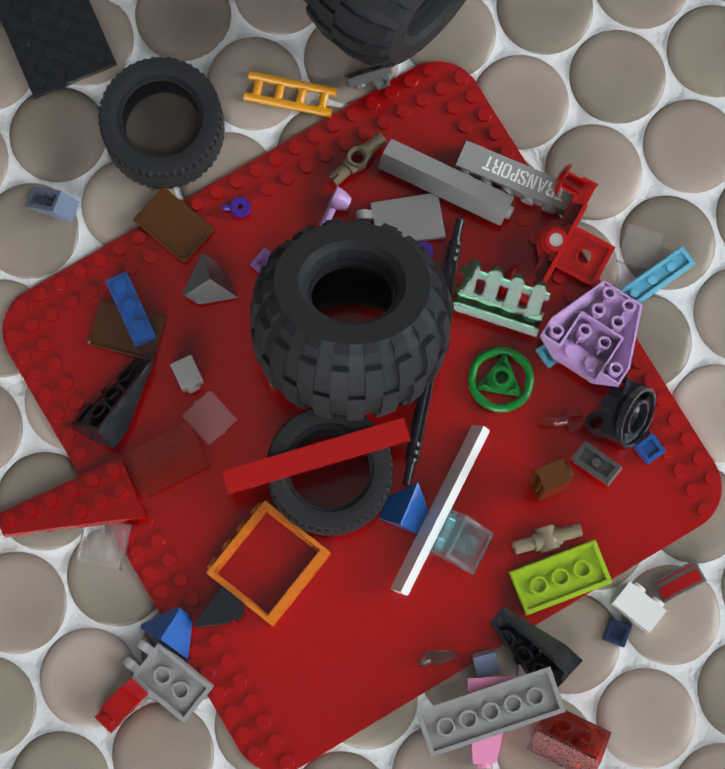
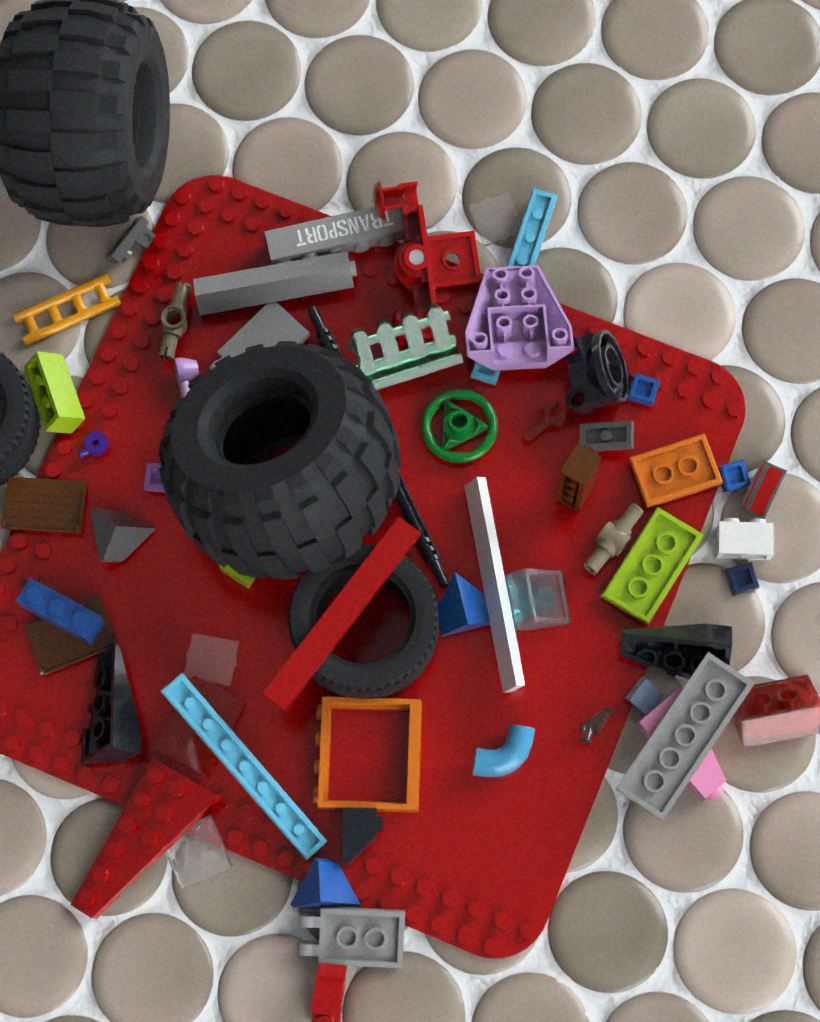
camera: 30 degrees left, 5 degrees down
(176, 509) = (243, 766): none -> medium azure tile
(187, 374) = (160, 633): light grey brick -> none
(237, 150) = (54, 392): none -> lime brick
(359, 635) = (507, 757): none -> dark azure cylinder
(627, 523) = (675, 471): none -> orange tile
(666, 556) = (734, 475): none -> blue tile

